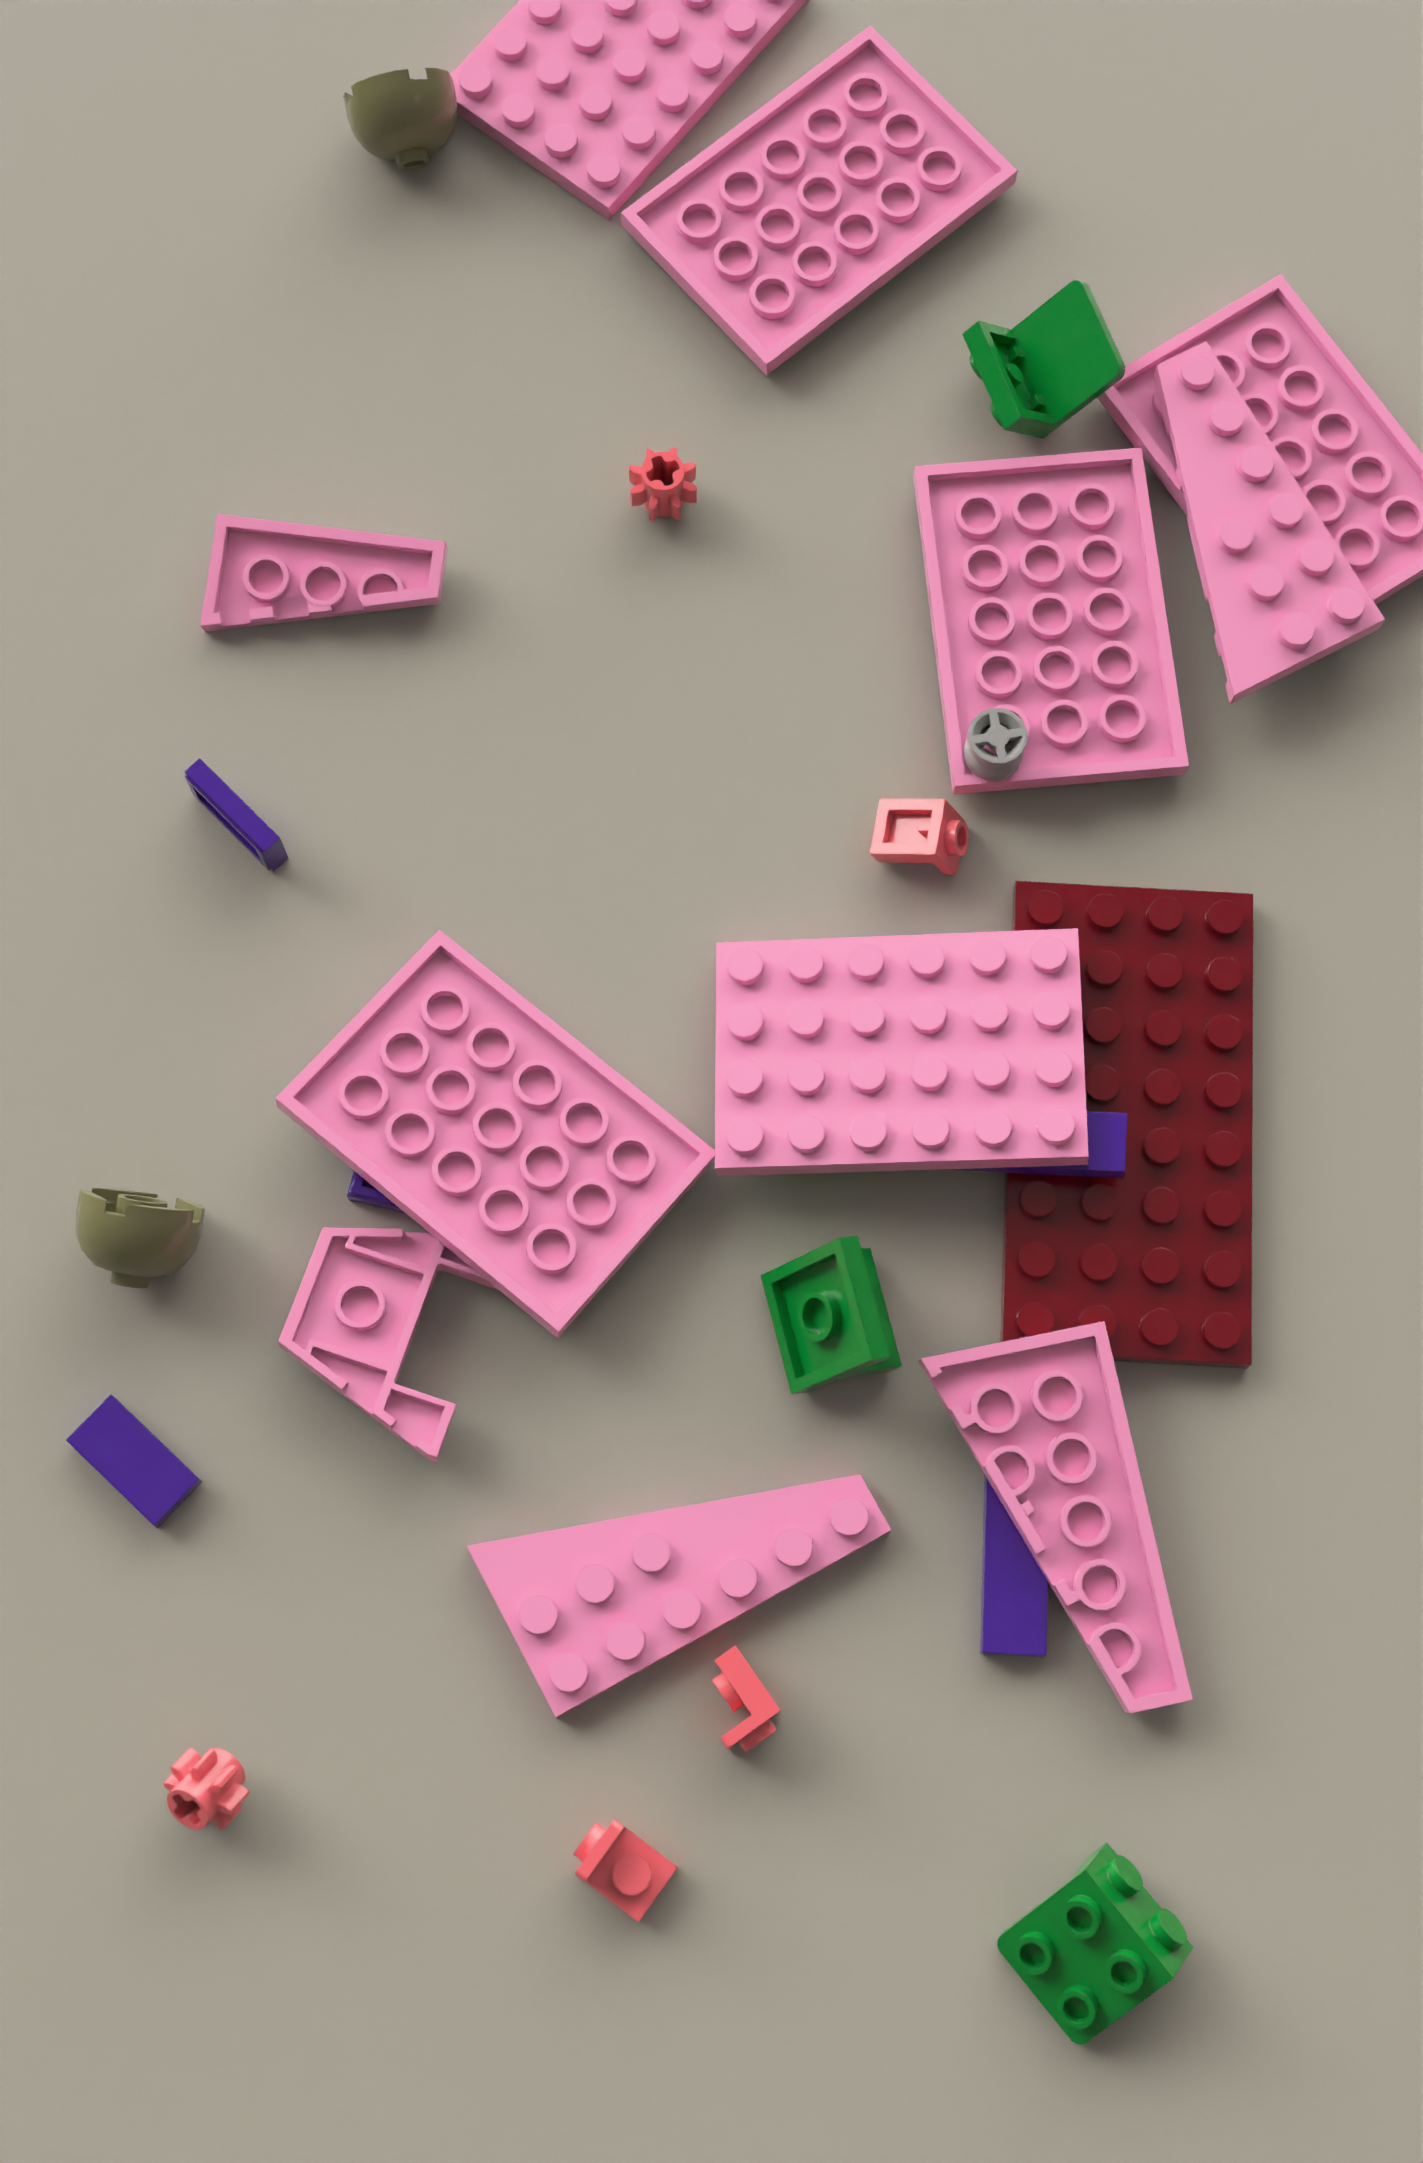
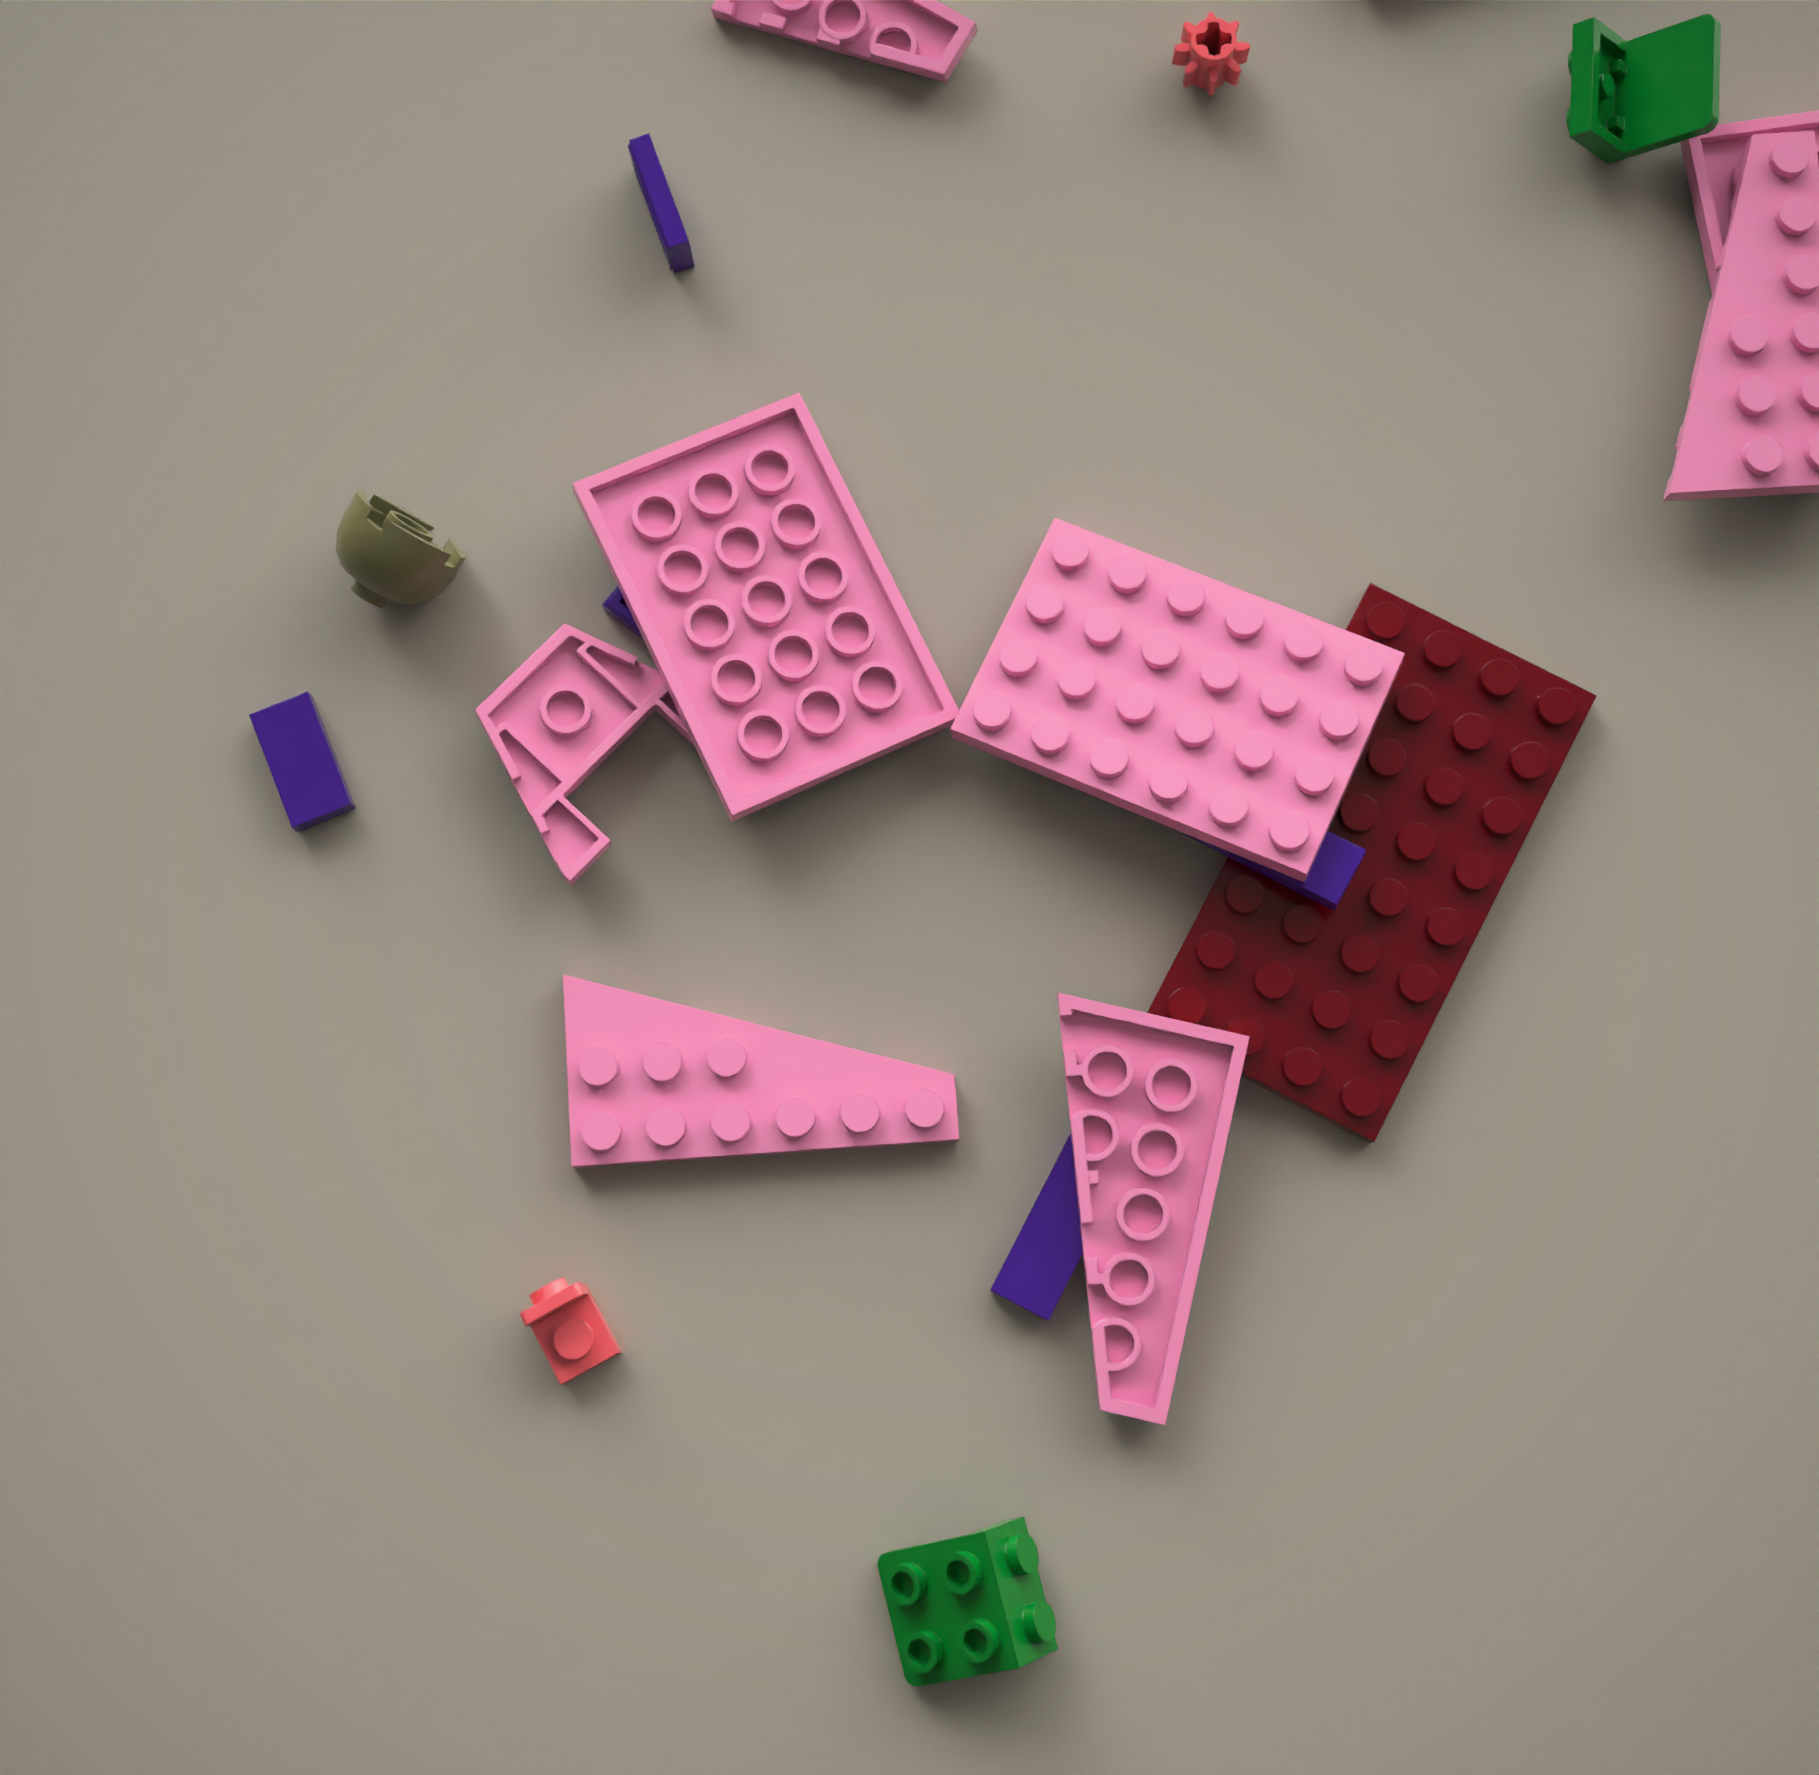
camera: 30 degrees right, 5 degrees up
(206, 1788) = (230, 1084): coral gear -> none
(742, 1687) = (752, 1218): coral bracket -> none
(830, 1316) = (996, 916): green bracket -> none
(920, 833) = (1299, 497): coral bracket -> none
(998, 730) = (1417, 427): light grey wheel -> none
(1053, 612) = (1525, 344): bright pink plate -> none

